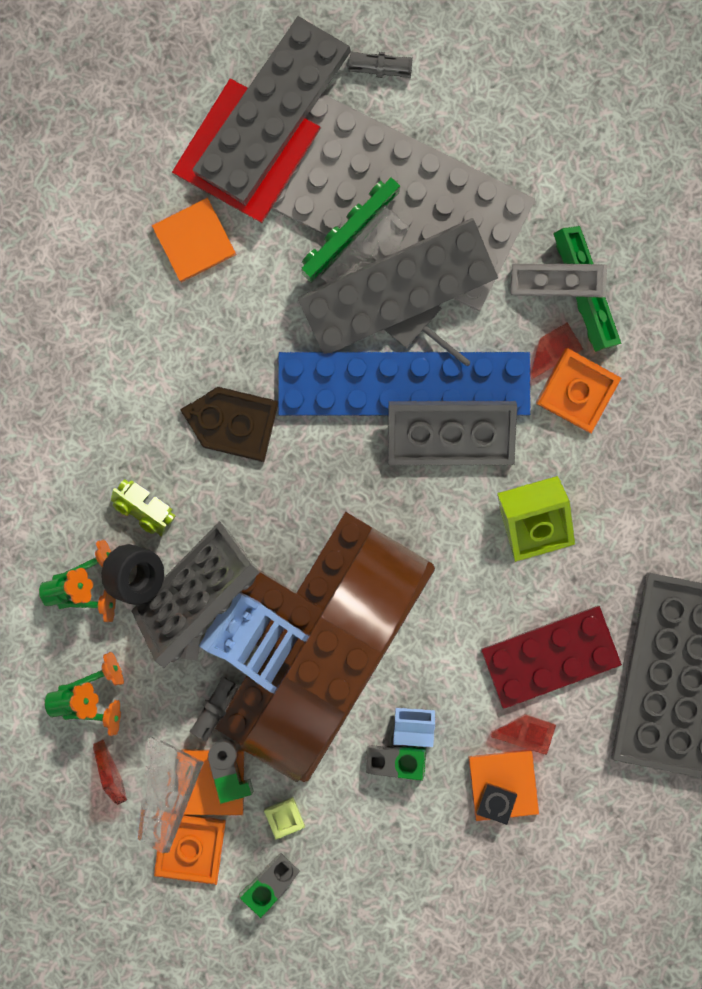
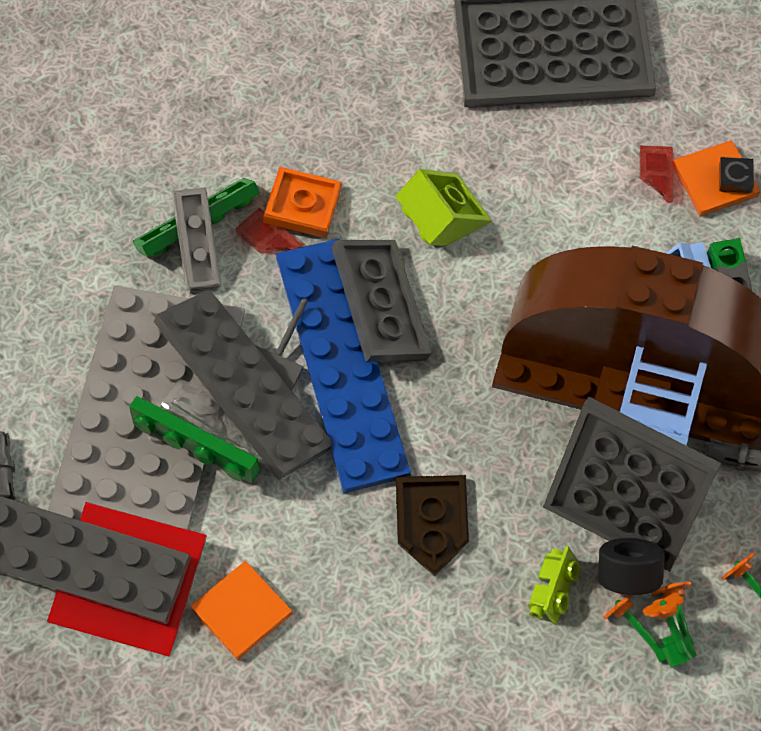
camera: 100 degrees left, 25 degrees down
(551, 657) = (576, 167): dark red plate -> none

